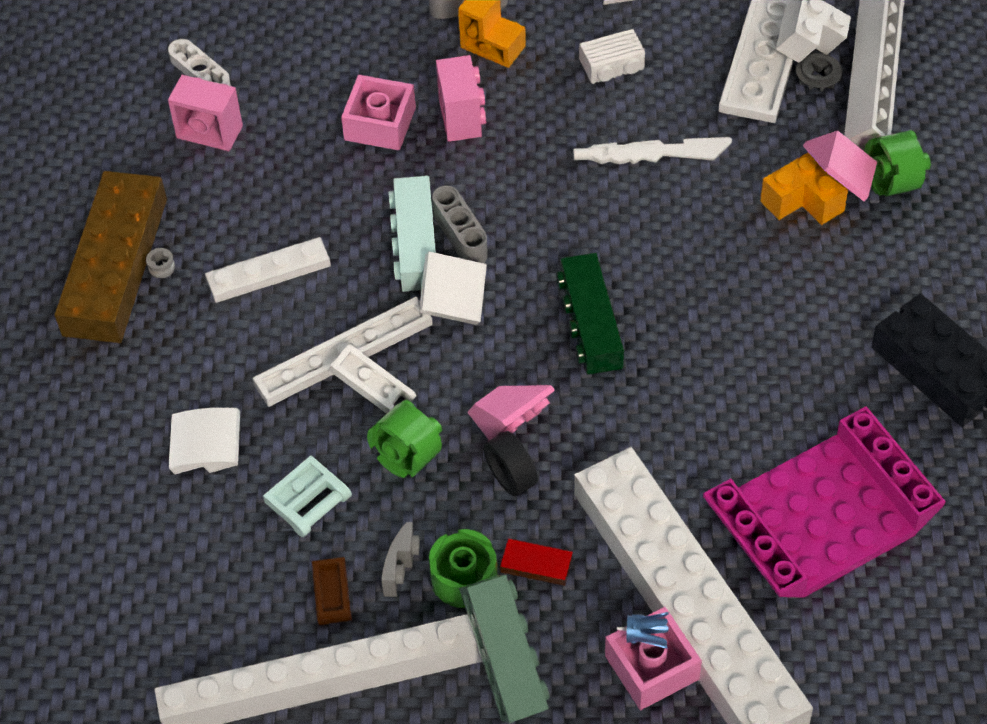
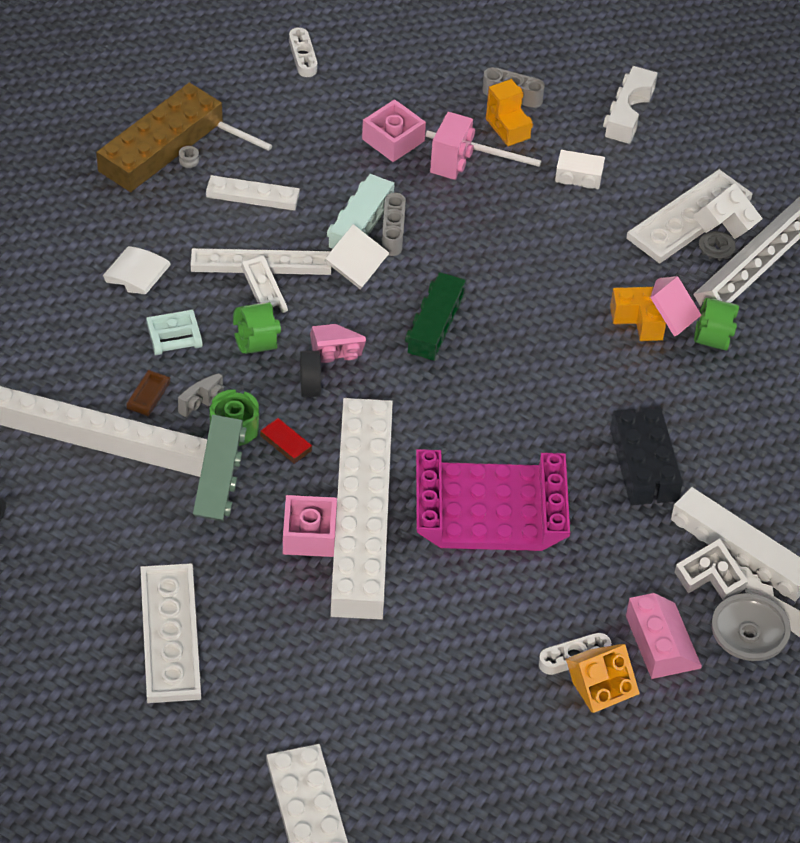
camera: 25 degrees right, 5 degrees down
(205, 112) = (281, 78): bright pink brick -> none
(206, 203) = (245, 136): none -> white axle
(426, 94) = (497, 152): none -> white axle
(641, 627) = (309, 499): flat silver piece -> none
(653, 150) = (561, 241): white sword -> none

